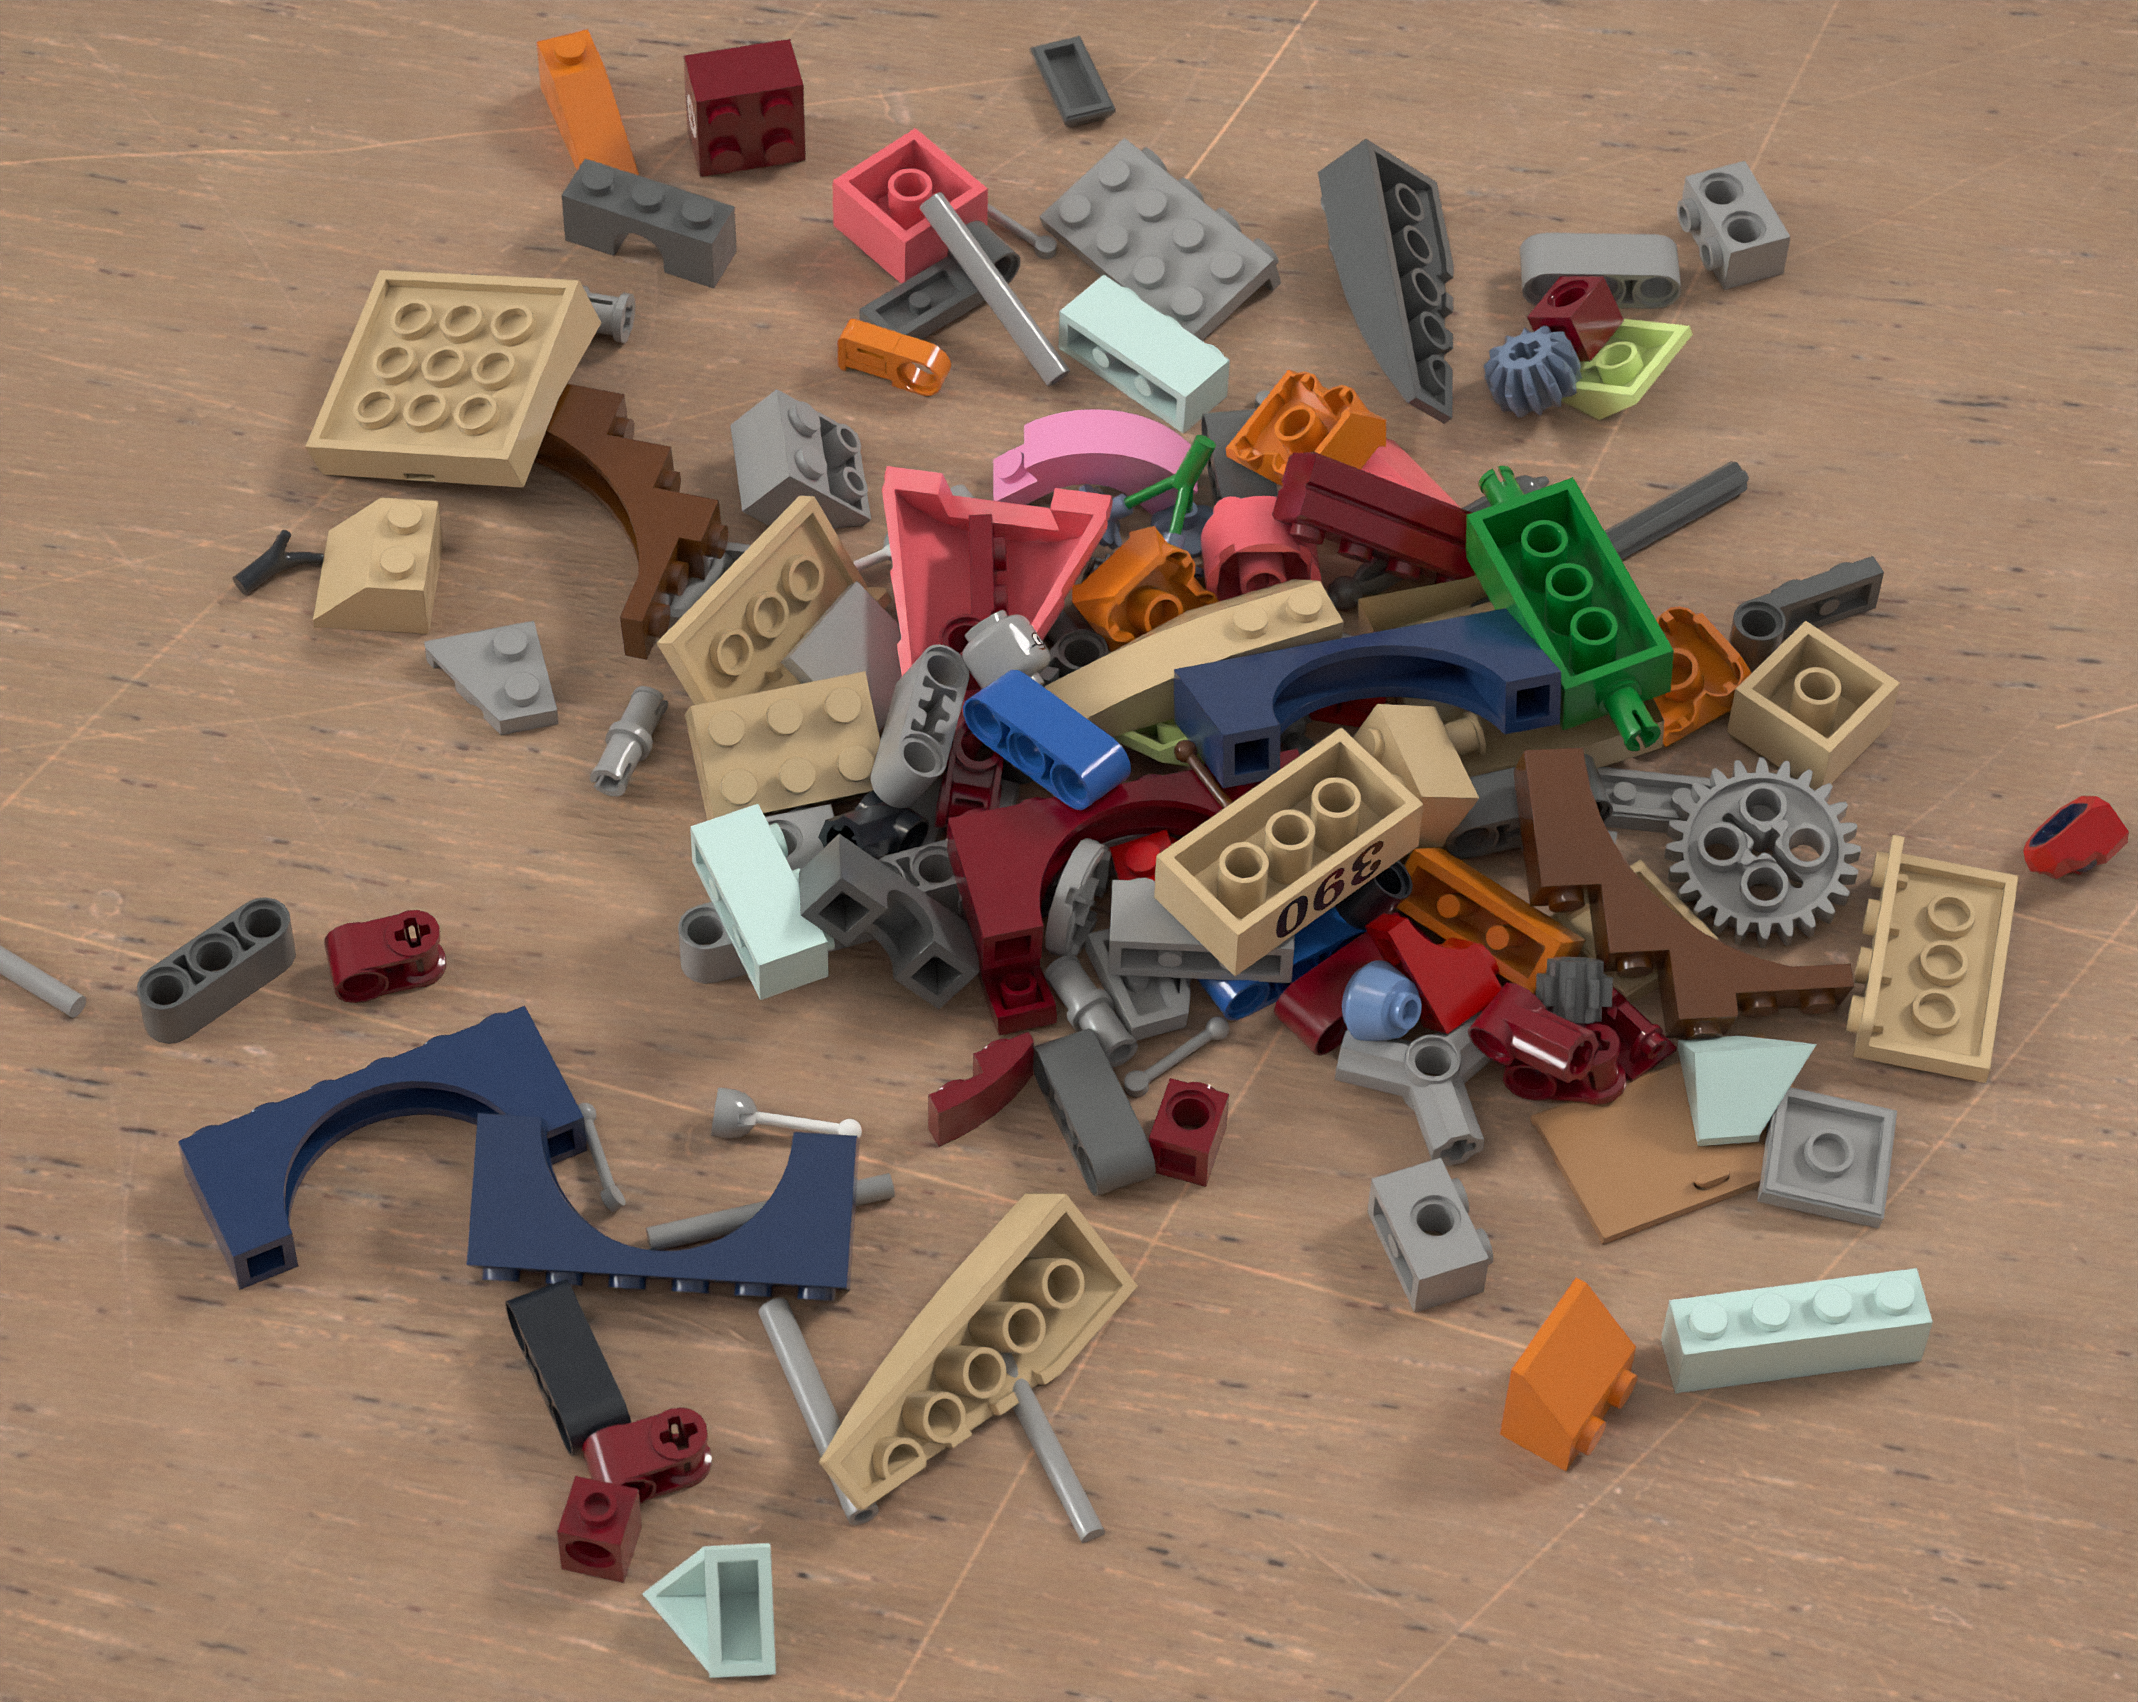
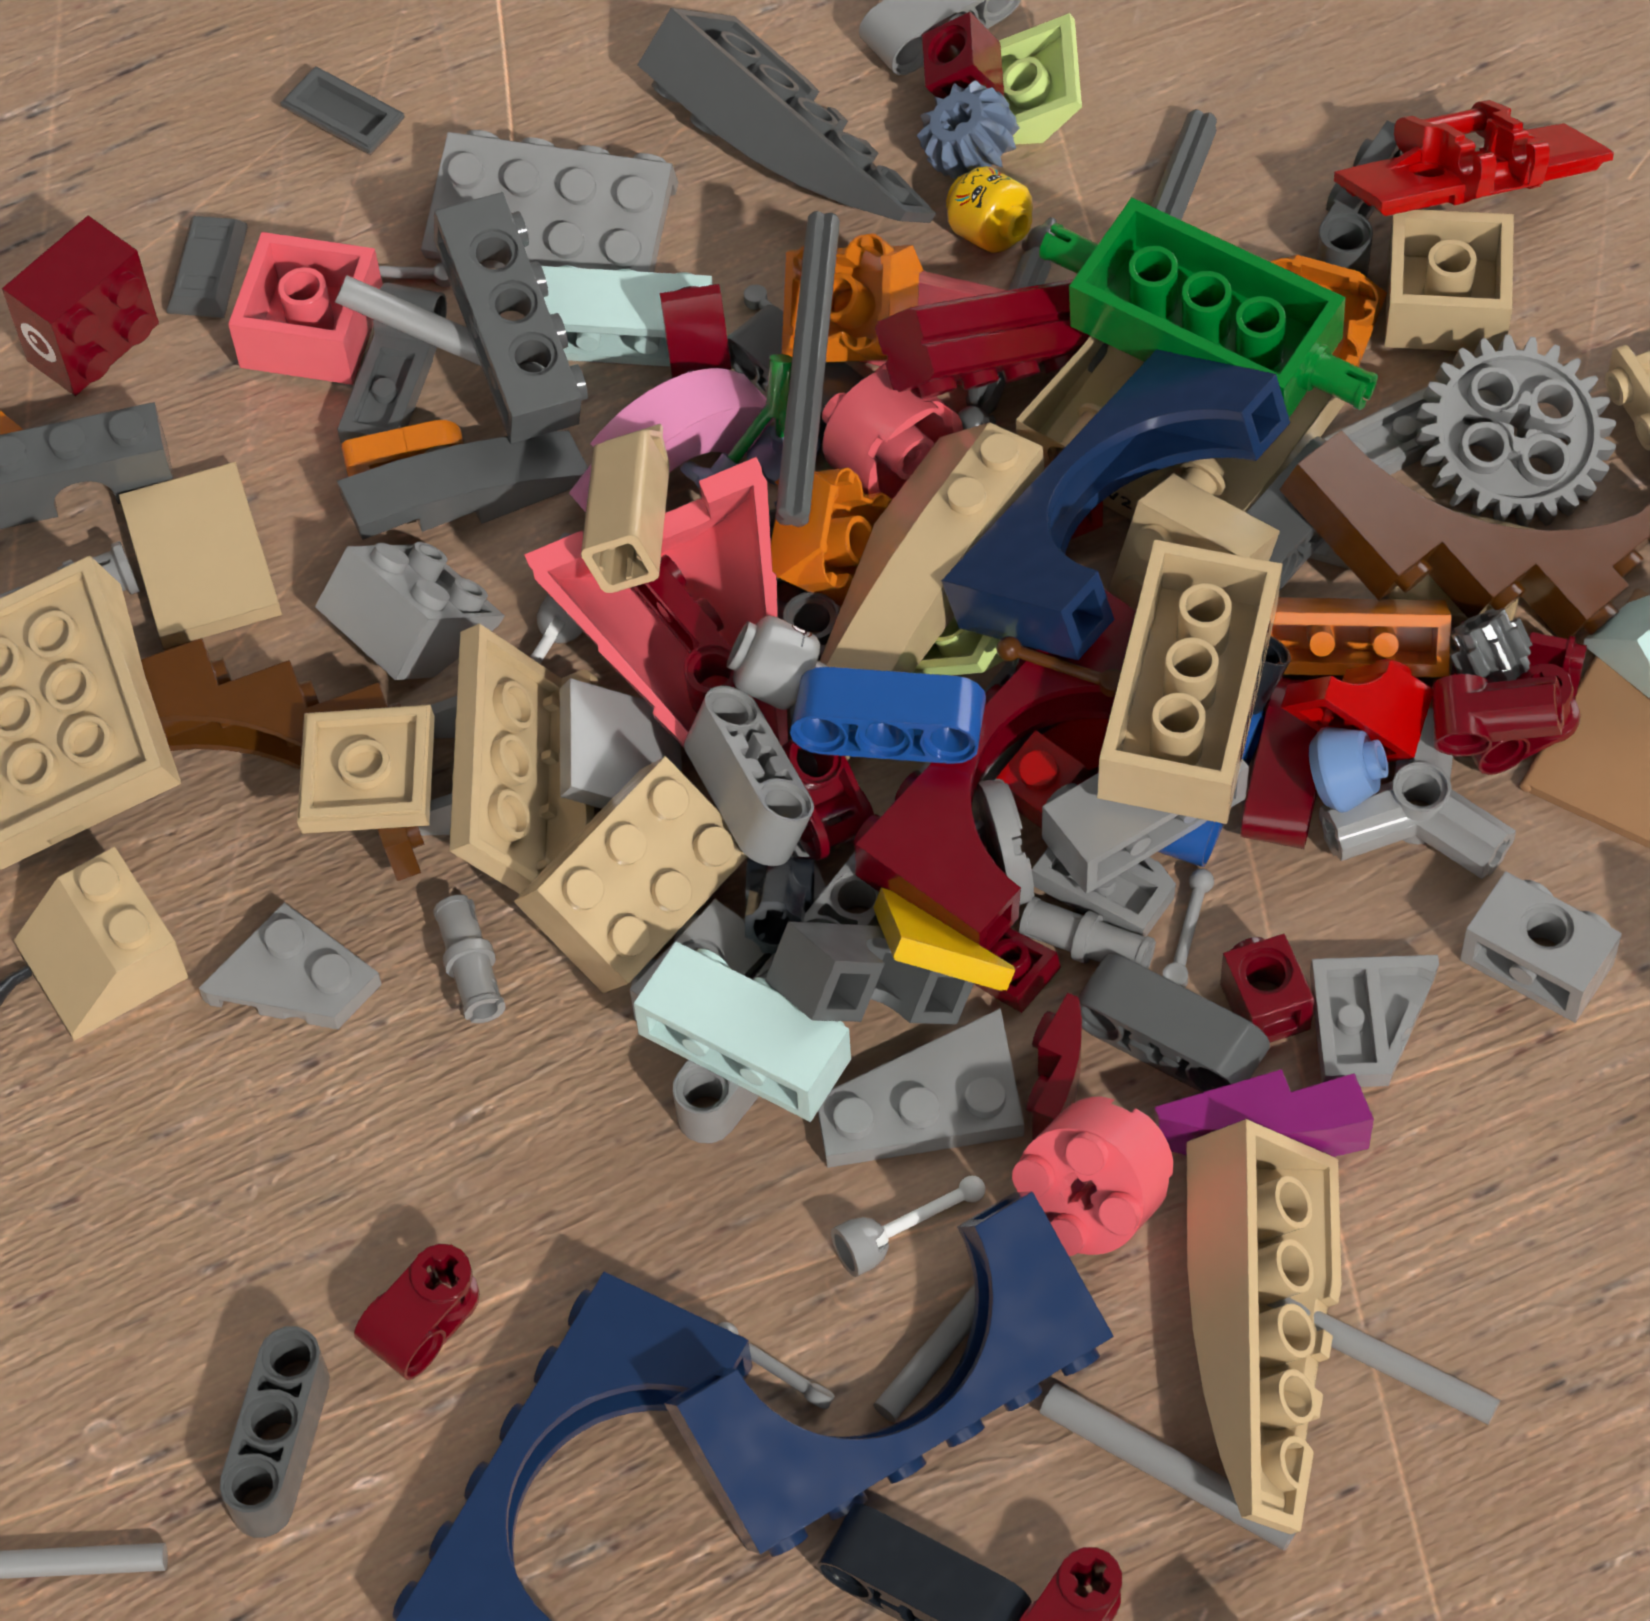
camera: 30 degrees left, 5 degrees up
(653, 553) = (366, 769): none -> tan tile
(688, 342) = (200, 555): none -> tan tile
(872, 133) = (207, 267): none -> dark grey tile
(872, 1048) = (927, 1100): none -> light grey wing
(913, 398) = (461, 480): none -> dark grey slope
(927, 1167) = (1097, 1174): none -> coral brick
(946, 925) = (932, 945): none -> yellow tile
(993, 479) = (626, 509): none -> tan piece
(1053, 218) = (525, 400): none -> dark grey brick
(1144, 1243) = (1322, 1116): none -> magenta slope
(1176, 389) = (695, 329): none -> dark red slope
(1216, 459) = (807, 370): none -> dark grey axle
(1252, 1199) = (1367, 1012): none -> light grey wing
(1499, 435) = (989, 209): none -> yellow head
(1876, 621) = (1445, 168): none -> red piece

